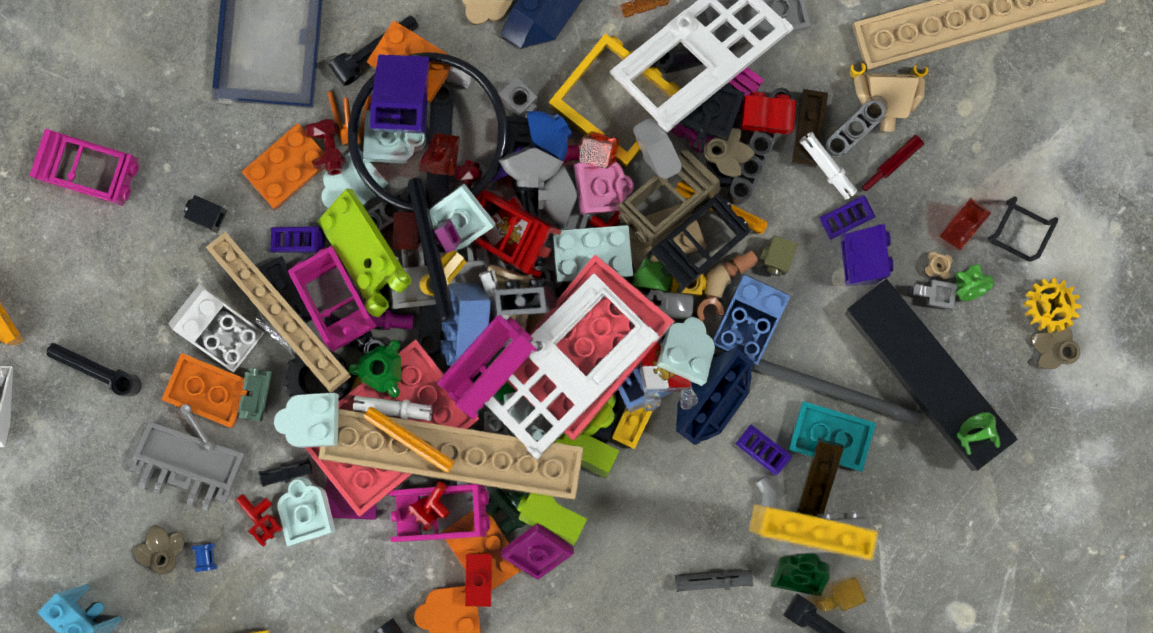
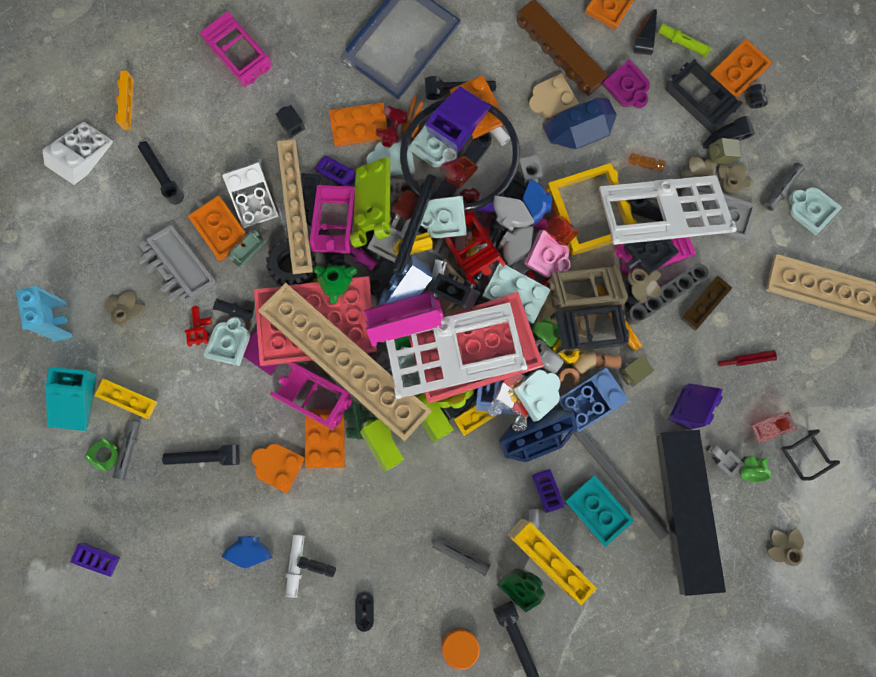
camera: 30 degrees right, 5 degrees down
(186, 409) = (198, 231): light grey hinge -> none
(204, 557) = (148, 329): blue bush -> none
(310, 420) = (269, 283): light aqua plate -> none
(394, 408) = (326, 309): white pin -> none
(409, 439) = (323, 334): light orange axle -> none
(430, 509) = (308, 389): red arm -> none
(447, 236) = (431, 222): magenta plate -> none
(478, 580) = (309, 455): red plate -> none
(537, 551) = (358, 461): magenta plate -> none
(657, 149) = (600, 252): light grey piece -> none
(768, 114) = (686, 275): red brick -> none
(820, 477) = (577, 530): dark brown plate -> none
(833, 172) = (704, 333): white pin -> none
(846, 596) = (543, 623): clear yellow plate -> none
(852, 137) = (729, 319): dark grey beam -> none
(866, 207) = (713, 375): dark purple slope -> none
(901, 92) = (772, 313): tan torso -> none
(944, 260) = (744, 444): tan plate -> none
(981, 420) = (710, 563): bright green piece -> none
(1062, 309) = (808, 523): yellow gear -> none

